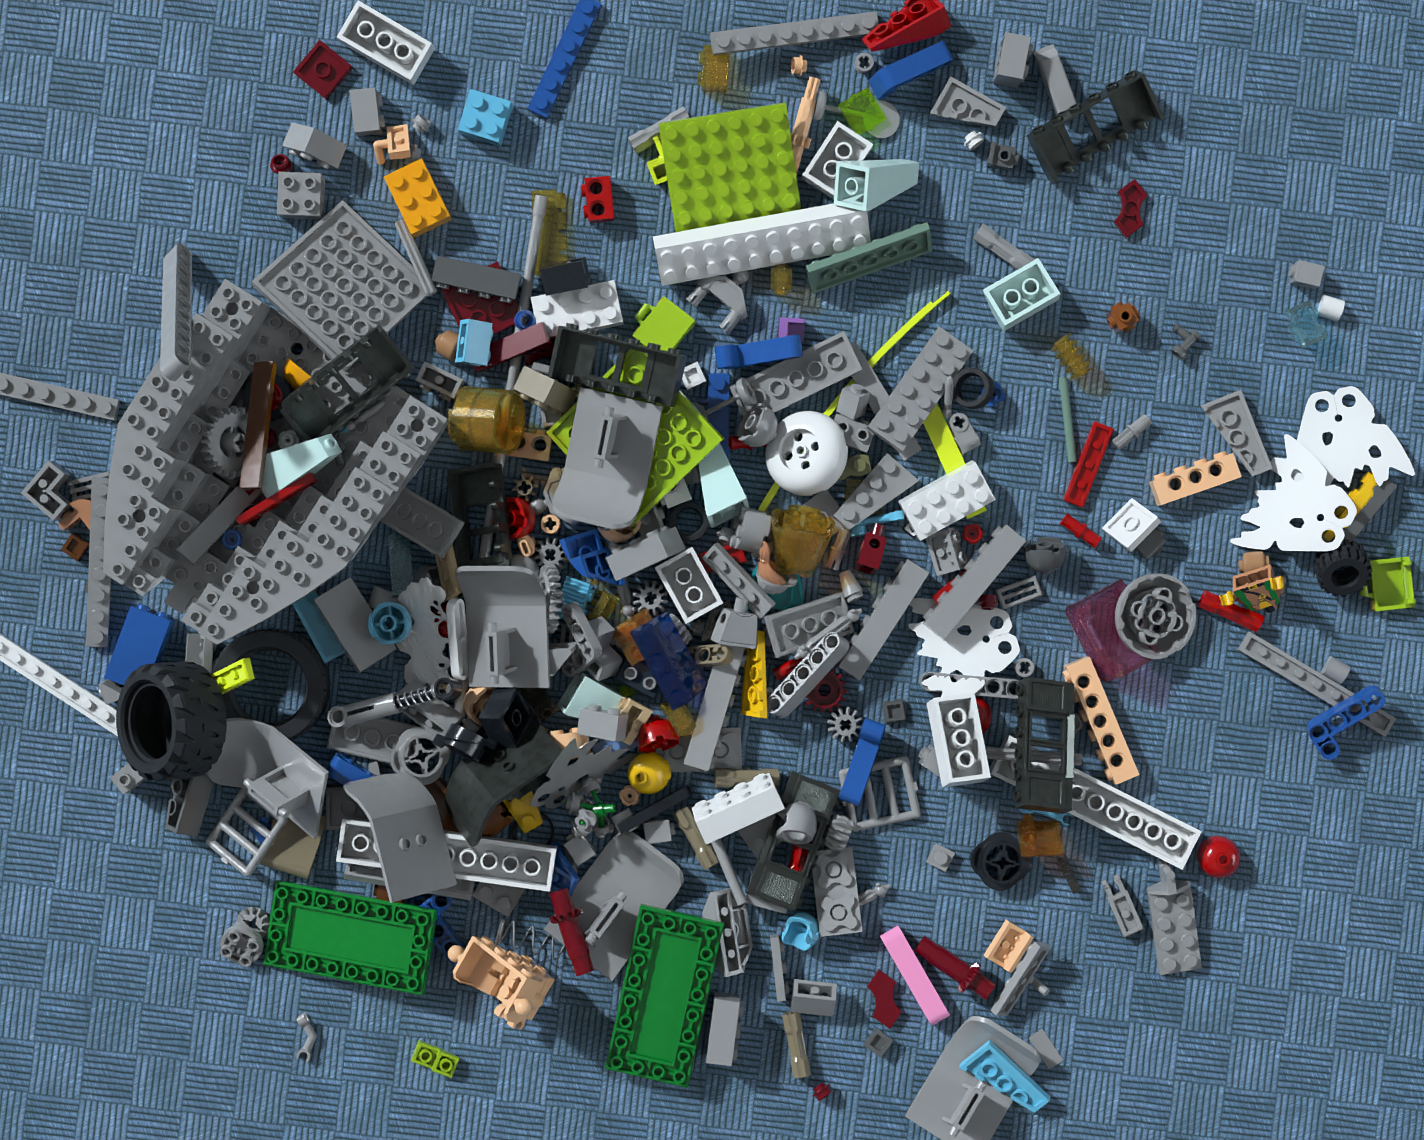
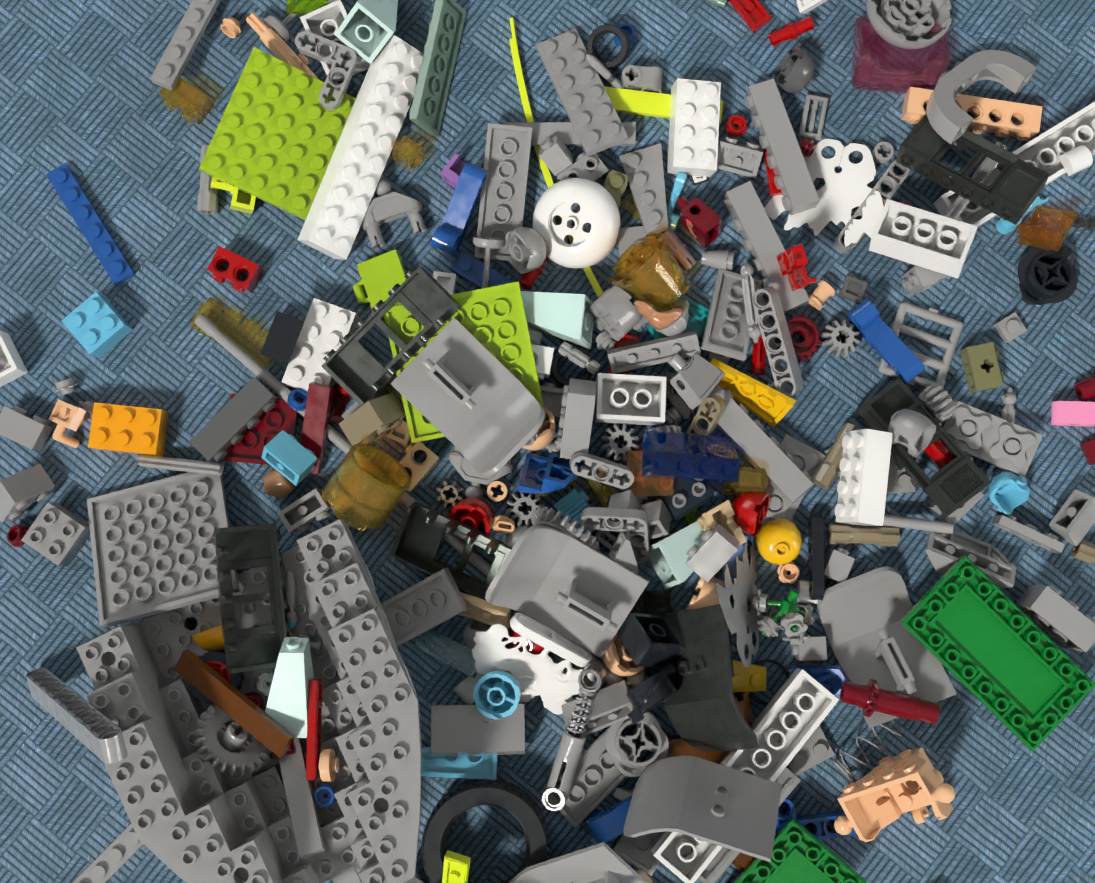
camera: 55 degrees left, 5 degrees down
(256, 527) = (328, 765): none -> light nougat wheel
(617, 587) = (618, 469): none -> light grey beam
(696, 523) = (579, 358): none -> light grey axle
(819, 173) = (334, 59): none -> light grey beam
(871, 687) = (820, 295): none -> light nougat bush
(873, 649) = (790, 262): none -> red piece
(880, 854) = (977, 378): none -> olive brick
(1105, 827) = (1076, 160): none -> white brick
(1153, 716) = (994, 65): none -> light grey arch

